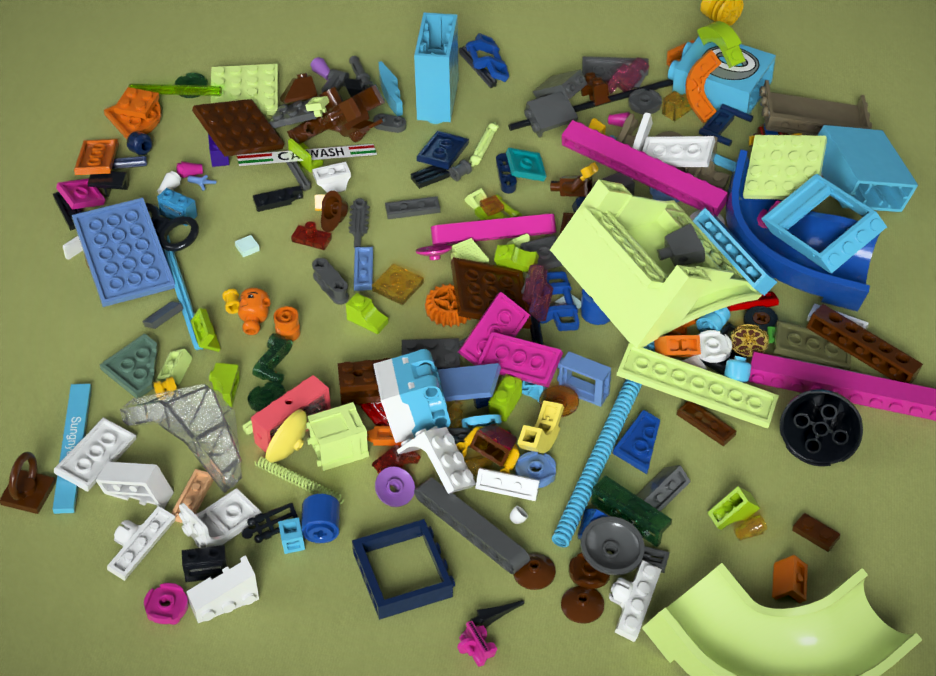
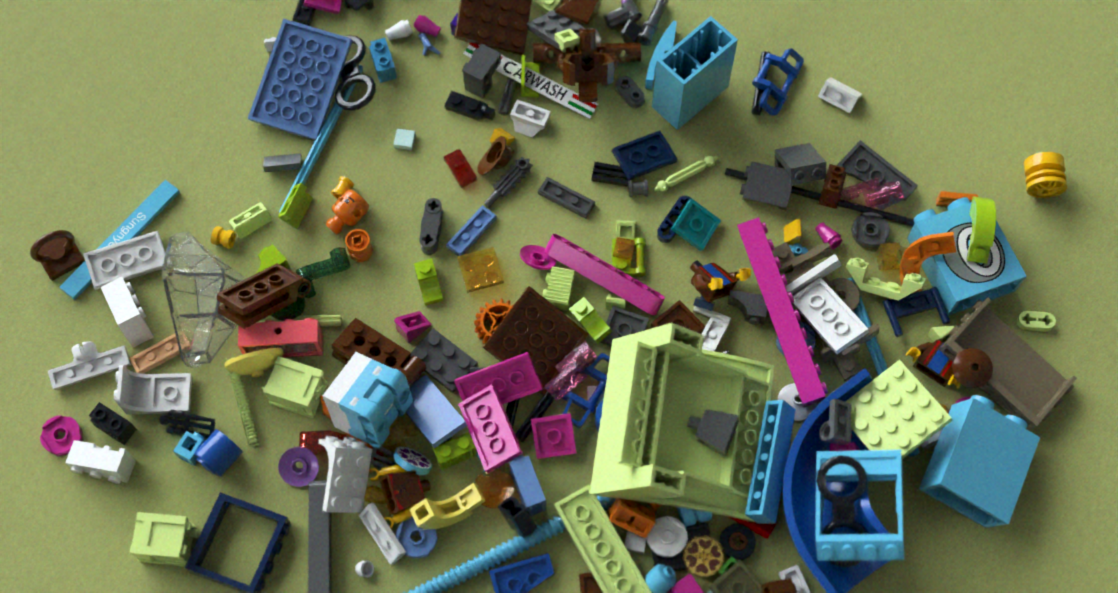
camera: 40 degrees right, 20 degrees up
(134, 366) = (221, 196): sand green plate -> none
(249, 390) = (261, 295): none -> reddish brown hinge
(266, 166) = (479, 70): none -> dark grey brick
(339, 601) = (163, 539): none -> yellowish green container
(383, 348) = (411, 325): none -> dark pink slope
(539, 43) = (839, 95): none -> white panel
(567, 337) = (553, 436): none -> dark pink plate
(598, 399) = (517, 516): none -> black brick
(707, 108) = (858, 270): none -> yellowish green slope
(753, 124) = (940, 333): none -> yellowish green slope
(759, 198) = (838, 427): none -> dark grey plate
(800, 120) = (963, 372): none -> reddish brown dish
(803, 86) = (1035, 321): none -> yellowish green beam
(814, 232) = (842, 505): none -> black bar

